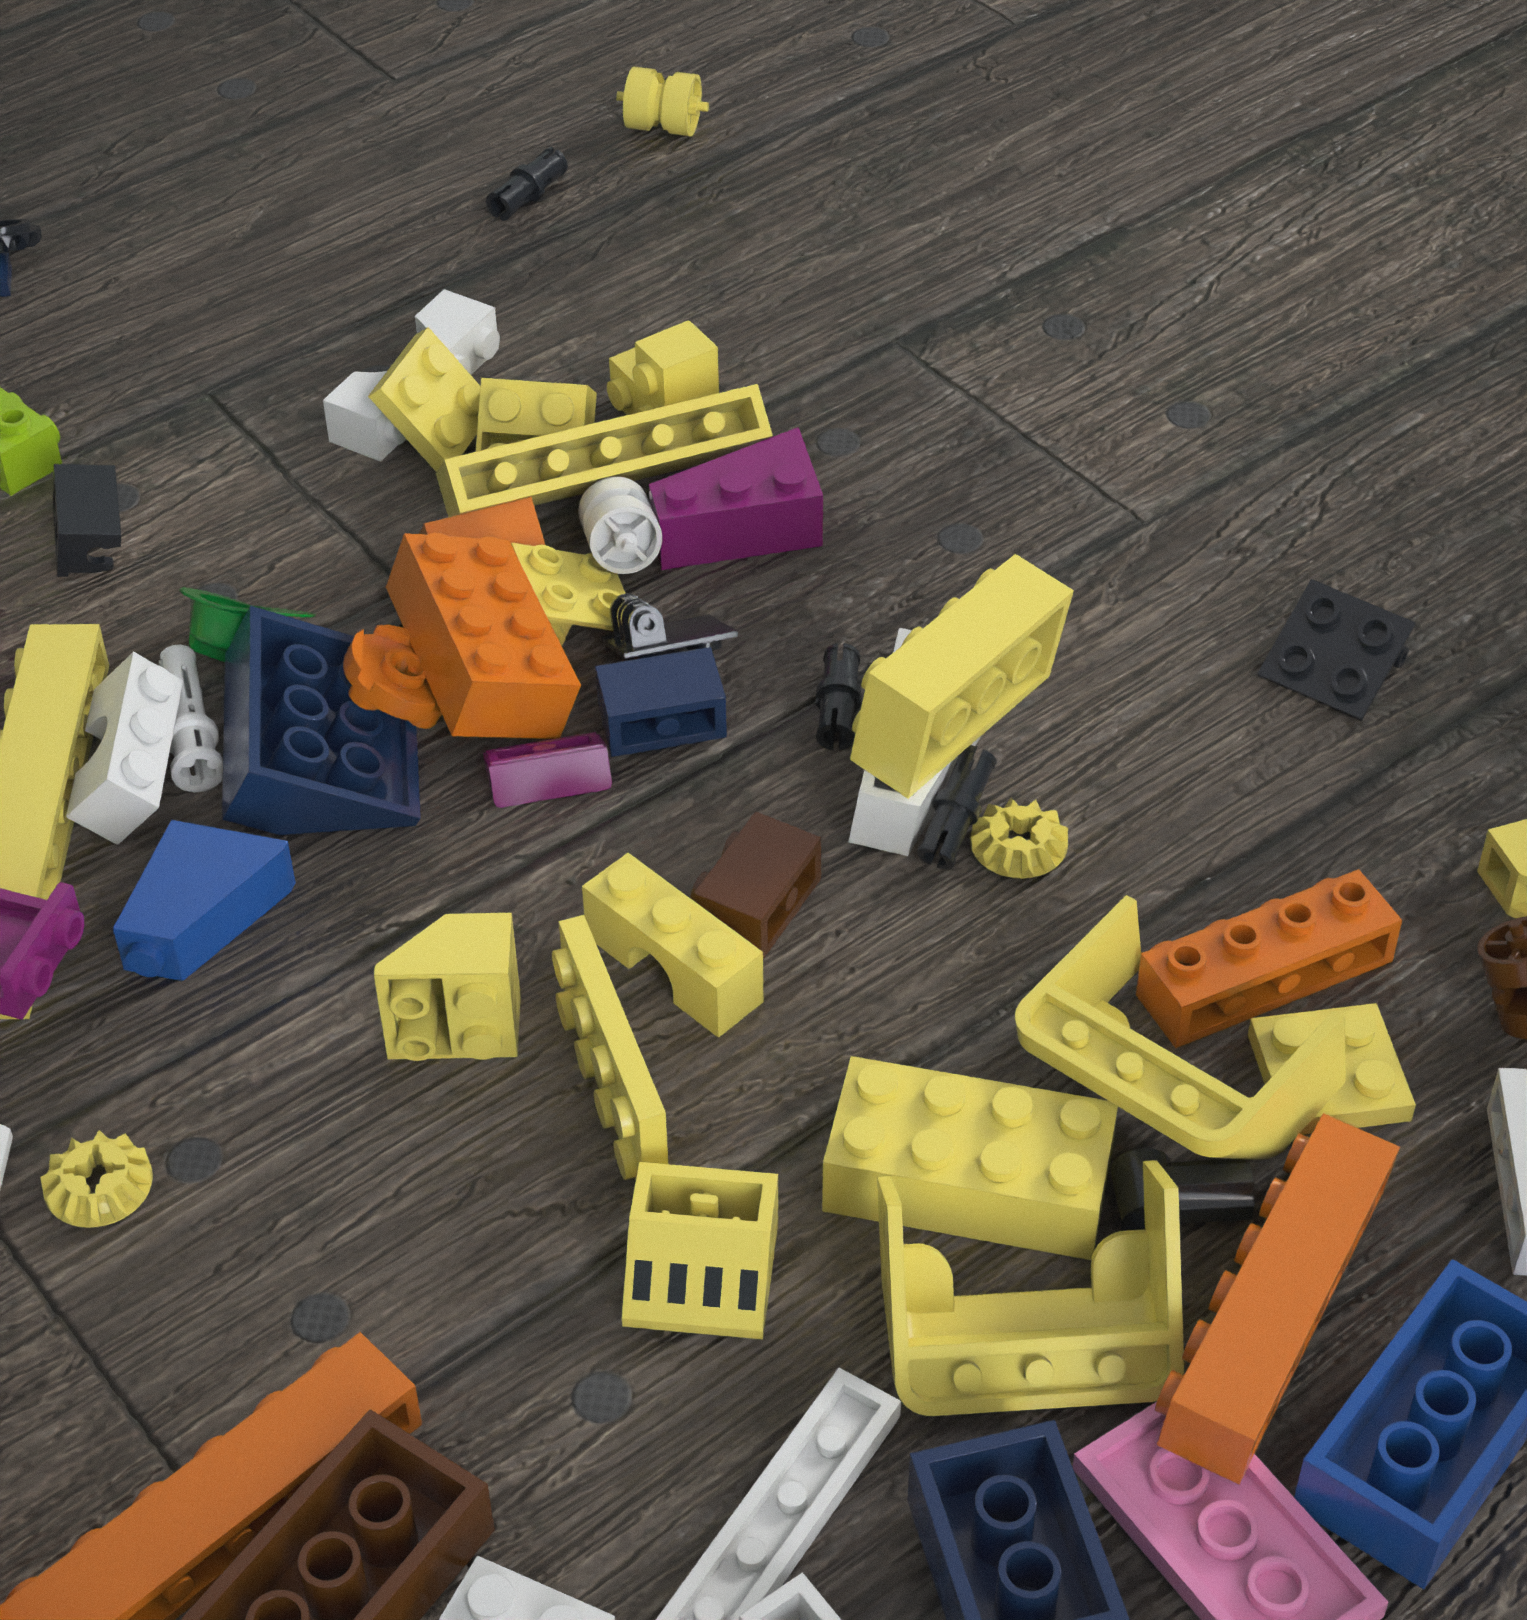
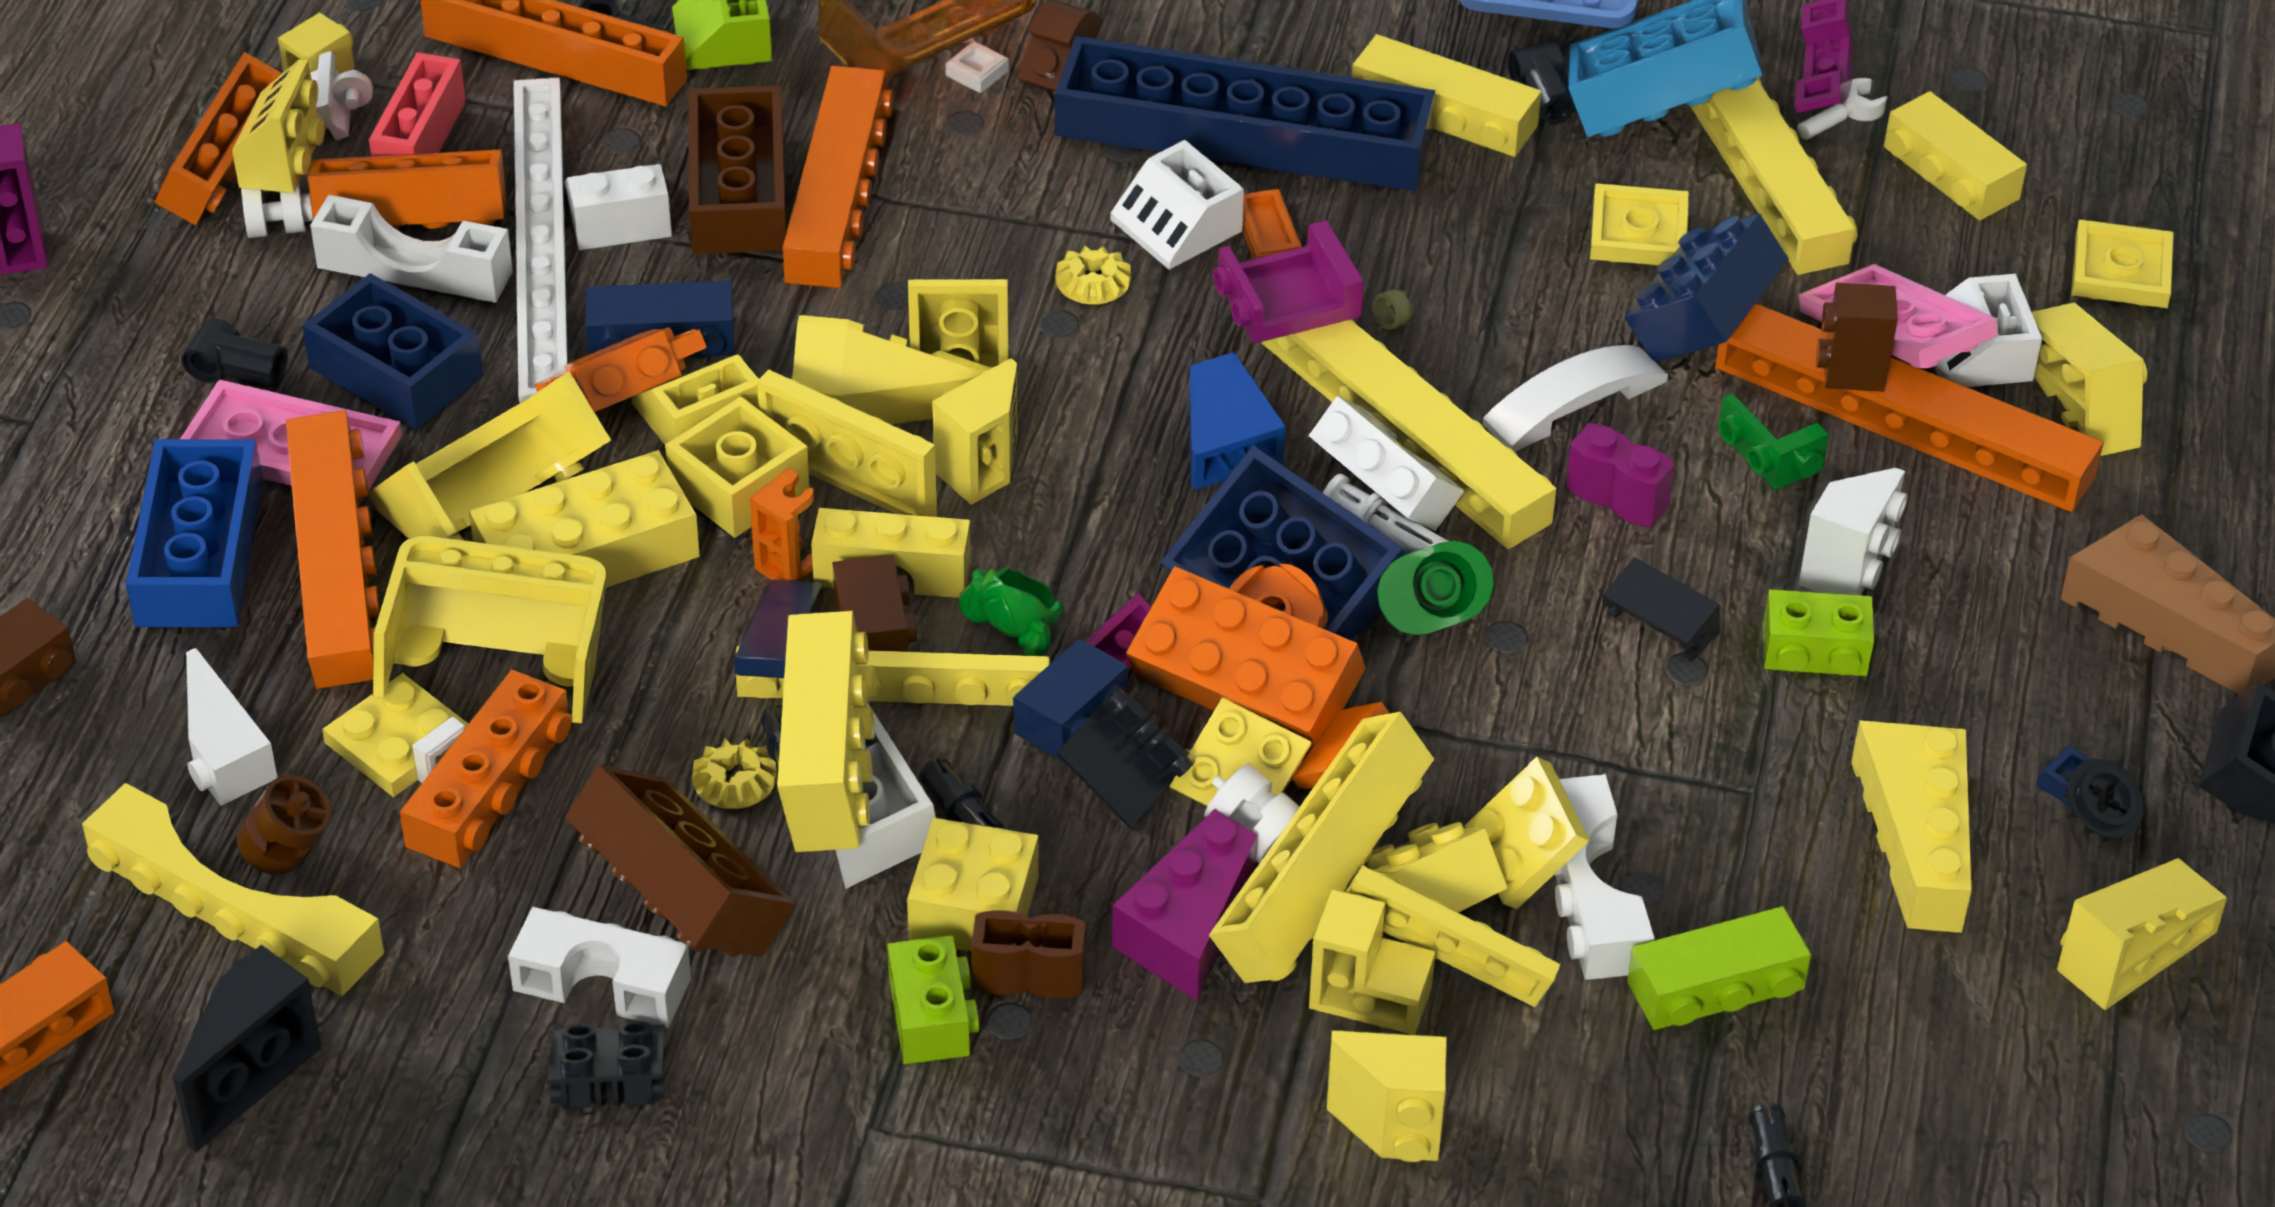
camera: 140 degrees right, 0 degrees up
(115, 153) = (2137, 930): none -> light yellow wedge
(136, 281) = (1921, 810): none -> light yellow wedge
(359, 1104) = (960, 318): none -> light yellow slope
(404, 275) = (1718, 968): none -> lime brick
(504, 1157) = (873, 372): none -> light yellow wedge
(590, 357) = (1457, 939): none -> light yellow plate
(609, 815) = (1014, 606): none -> green hair
(639, 1415) = (627, 310): none -> dark blue brick
(744, 293) = (1389, 1091): none -> light yellow slope
(745, 1112) = (731, 459): none -> light yellow brick
(757, 1334) = (631, 366): none -> orange hinge
(768, 999) = (777, 528): none -> orange hinge
(847, 859) = (931, 678): none -> light yellow plate
(871, 896) = (765, 642): none -> dark blue tile
(891, 589) = (968, 873): none -> light yellow brick
(918, 522) = (1028, 954): none -> reddish brown brick
(1032, 528) = (930, 999): none -> lime brick
(1162, 725) = (679, 862): none -> reddish brown brick
(1305, 990) = (434, 745): none -> white tile
(1316, 749) = (563, 949): none -> white arch

